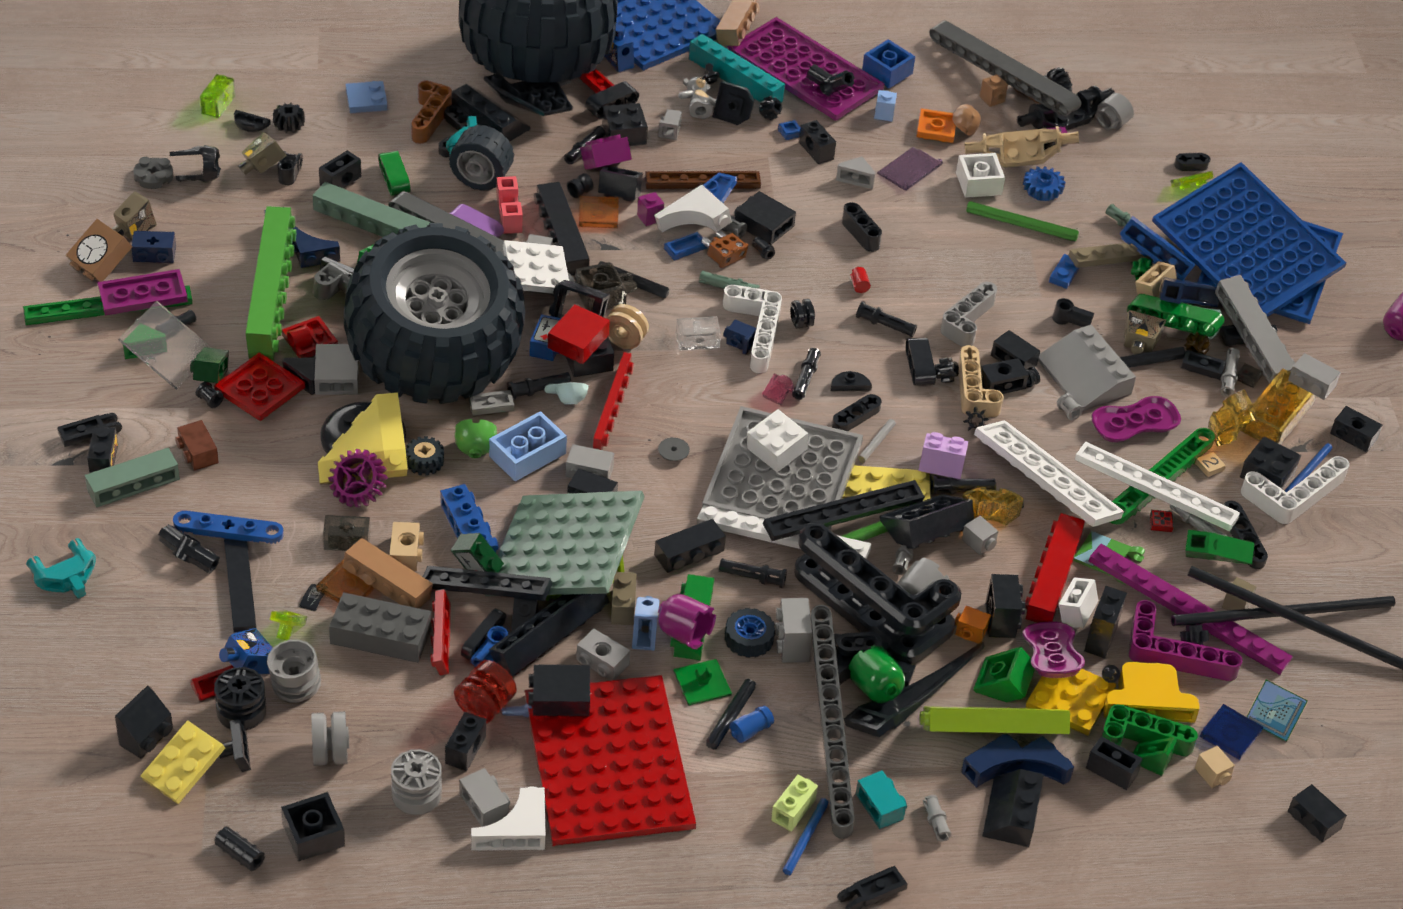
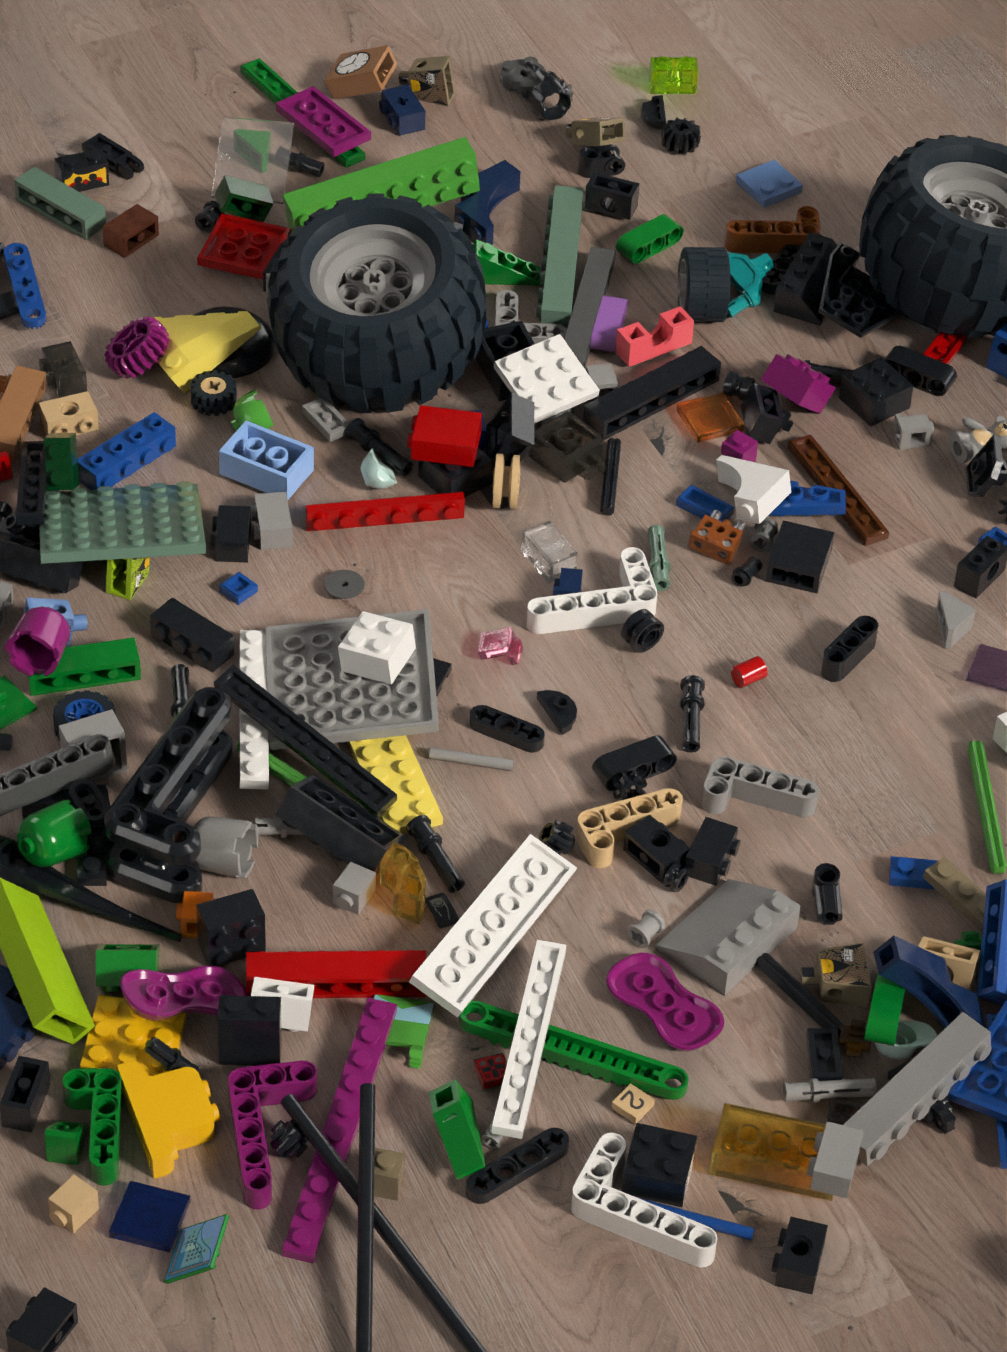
camera: 70 degrees right, 0 degrees up
(623, 598) = (84, 595): dark tan brick -> none
(648, 509) = (238, 588): none -> blue tile
(808, 367) = (557, 663): black pin -> none
(943, 455) = (461, 815): lavender brick -> none
(1231, 417) = (710, 1093): clear yellow brick -> none

